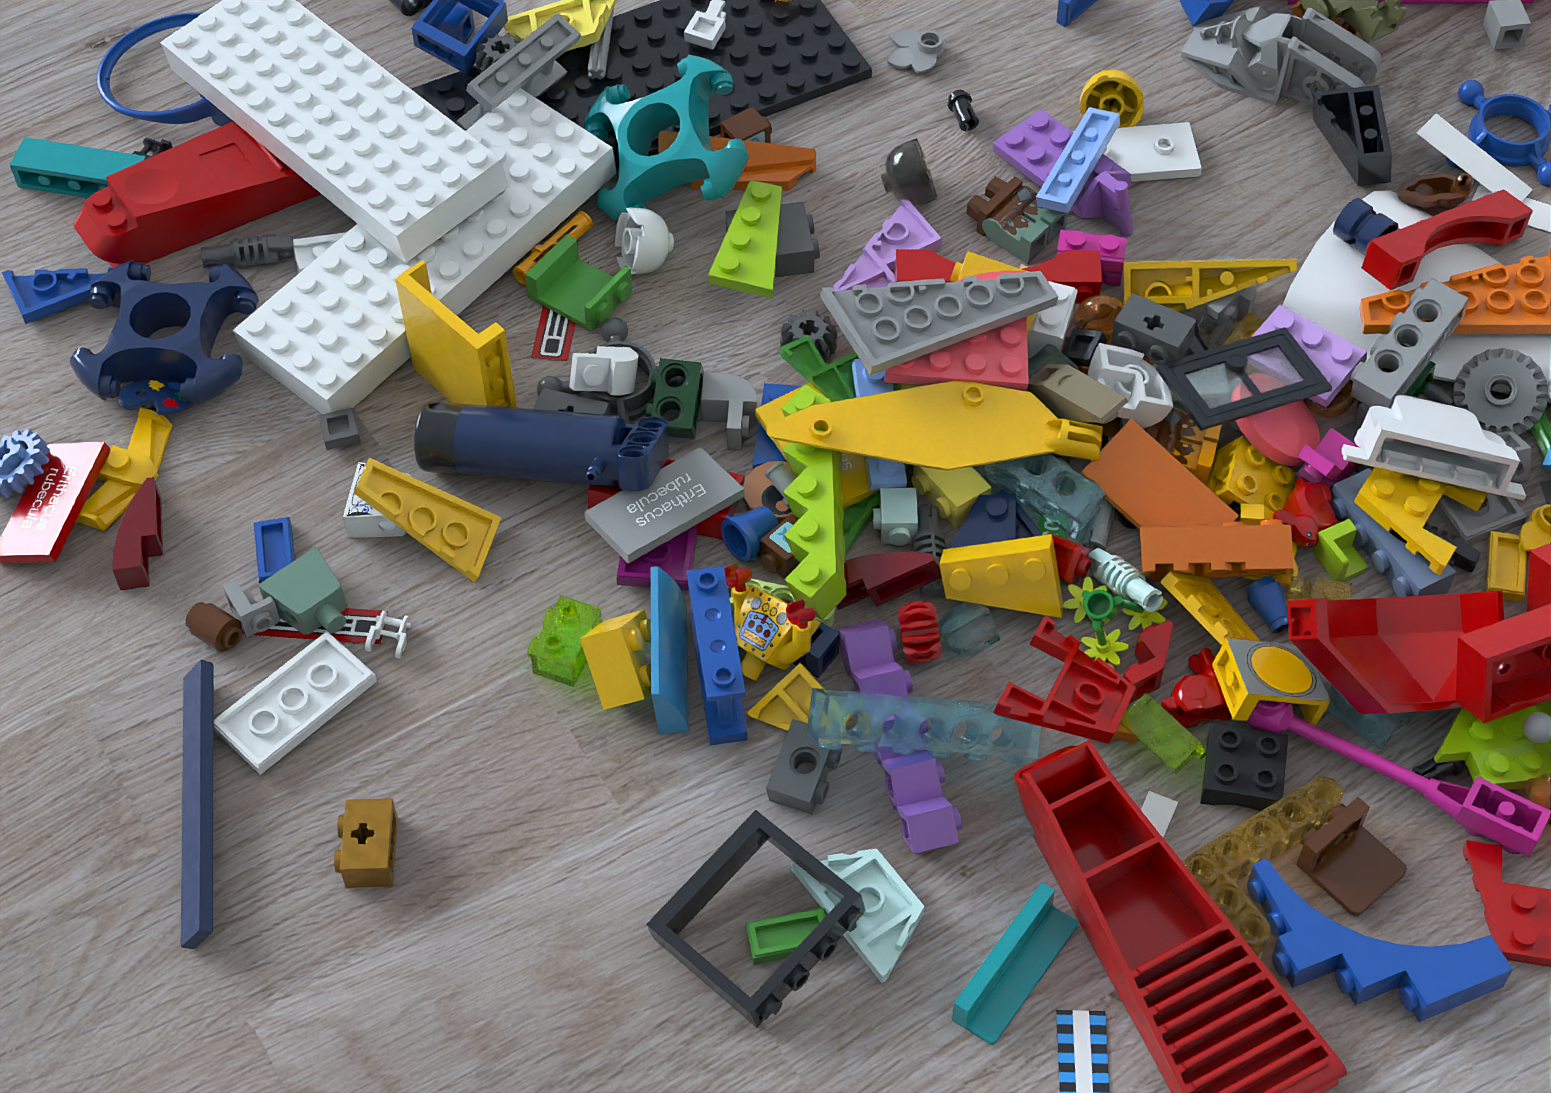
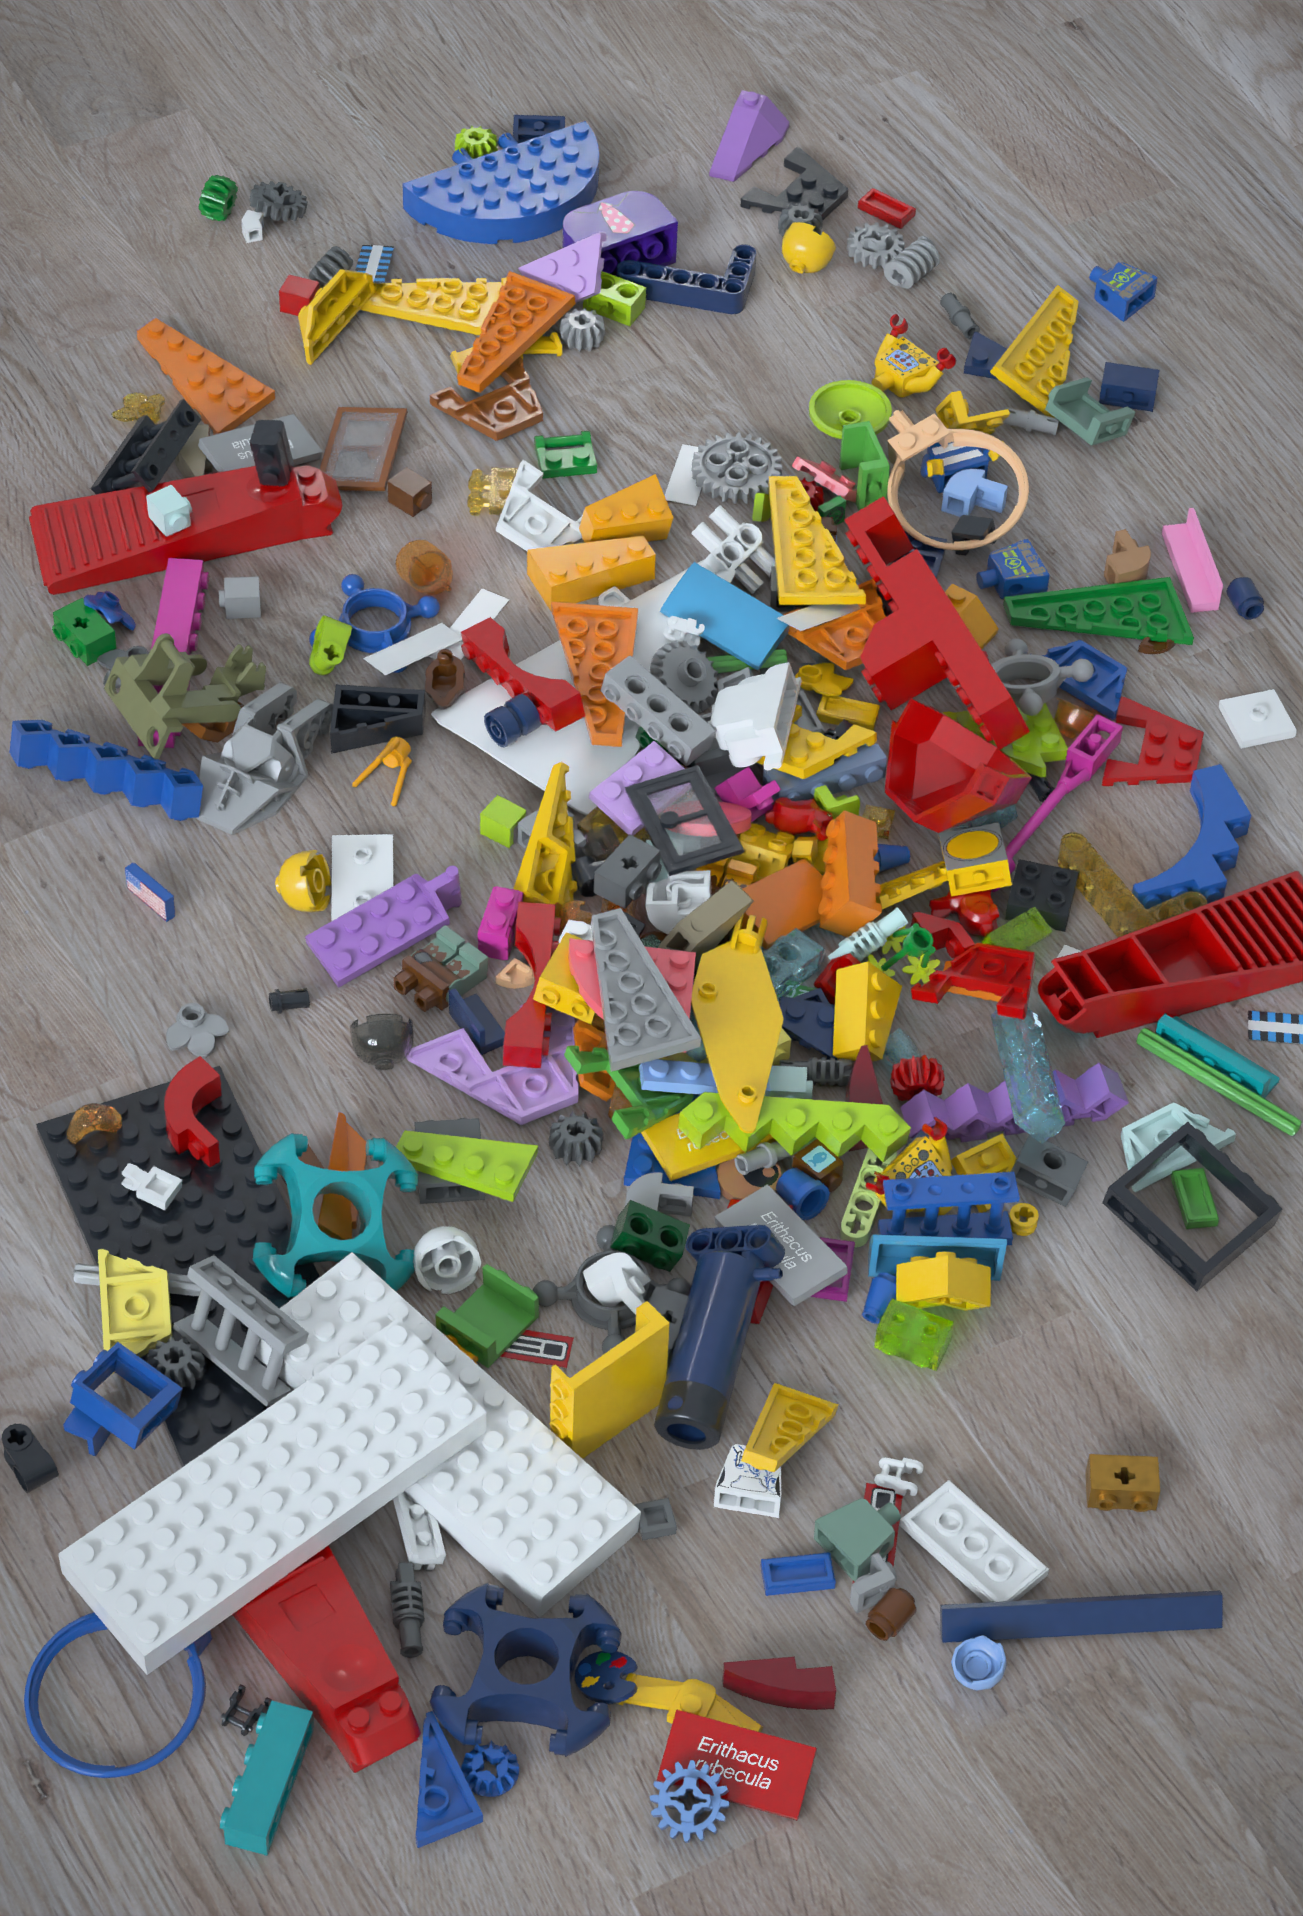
camera: 90 degrees left, 5 degrees down
(69, 334) = (483, 1782): none -> blue gear
(144, 703) = (979, 1663): none -> light blue hair
(616, 605) = (879, 1295): none -> blue cone
(750, 746) = (1024, 1210): none -> yellow bush
(800, 34) = (185, 1096): none -> red arch
(942, 1009) = (1218, 1081): none -> bright green axle
(959, 238) = (476, 1021): none -> dark blue panel
(1078, 160) = (402, 903): light blue plate -> none
(1241, 244) = (500, 819): none -> lime panel
(1316, 158) = (393, 755): none -> light orange plant
(1349, 859) = (1123, 844): reddish brown bracket -> none
(1457, 89) = (329, 645): none -> lime piece

